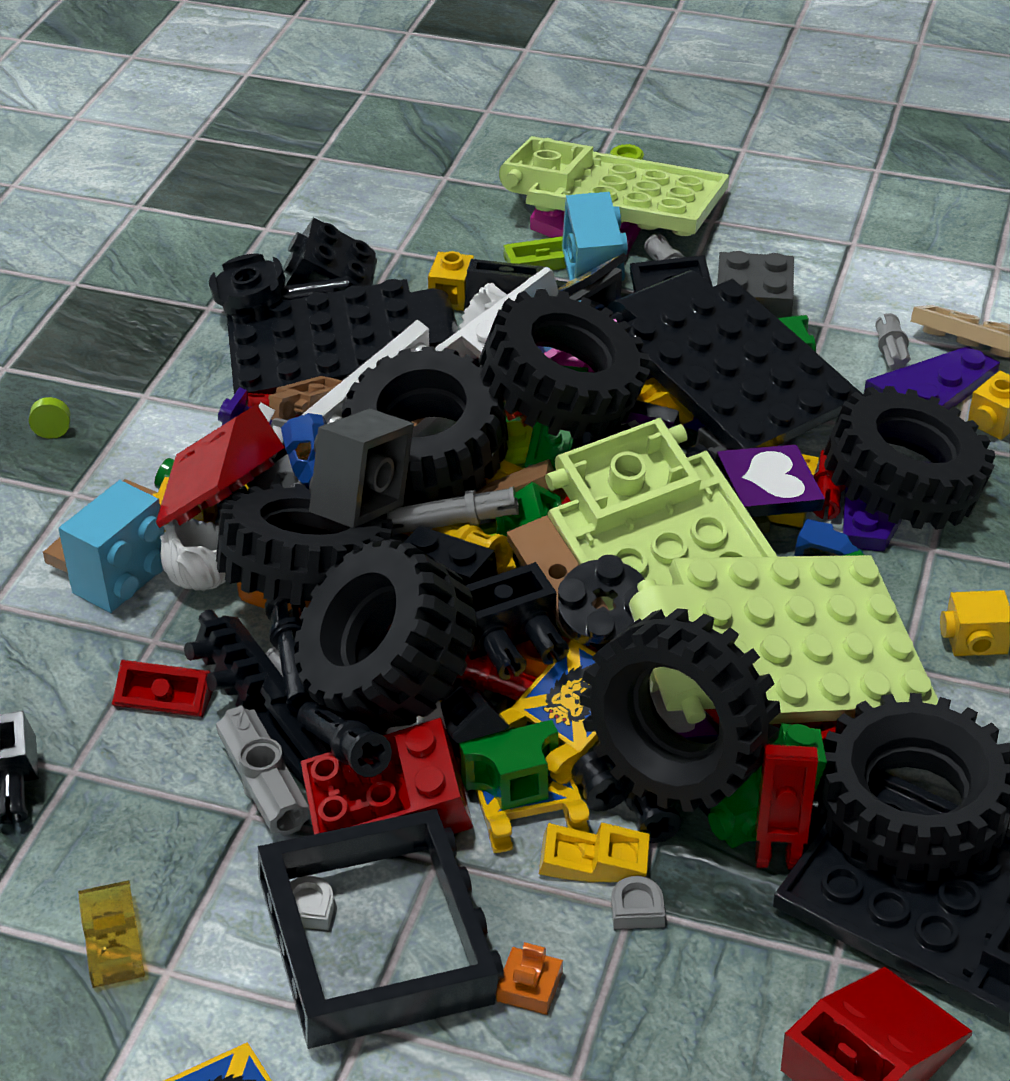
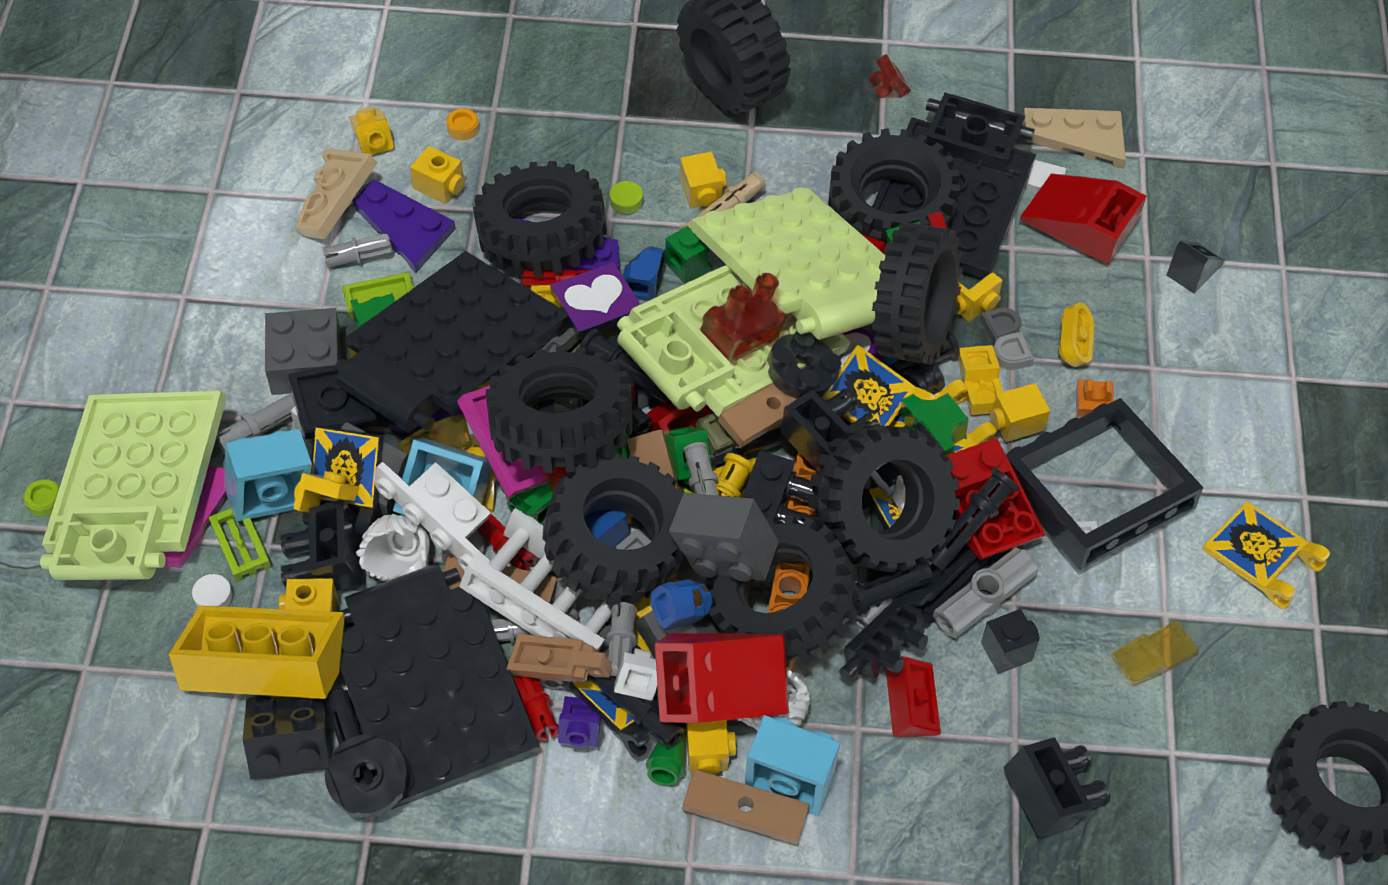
camera: 105 degrees left, 15 degrees up
(184, 773) = (1010, 641): none -> black brick
(399, 234) = (259, 651): none -> yellow slope
(490, 237) = (212, 591): none -> white tile
(515, 863) = (1020, 412): none -> yellow brick
(560, 261) = (312, 487): none -> yellow bracket
(642, 977) = (1077, 335): none -> yellow plate
(659, 526) = (746, 320): none -> clear red brick
(687, 903) = (1000, 322): none -> dark grey tile
(730, 872) = (979, 298): none -> yellow bracket
(836, 351) = (364, 291): none -> lime tile
(944, 652) = (735, 194): none -> tan pin
(961, 561) = (626, 197): none -> lime tile
(985, 1038) = (1040, 173): none -> white tile

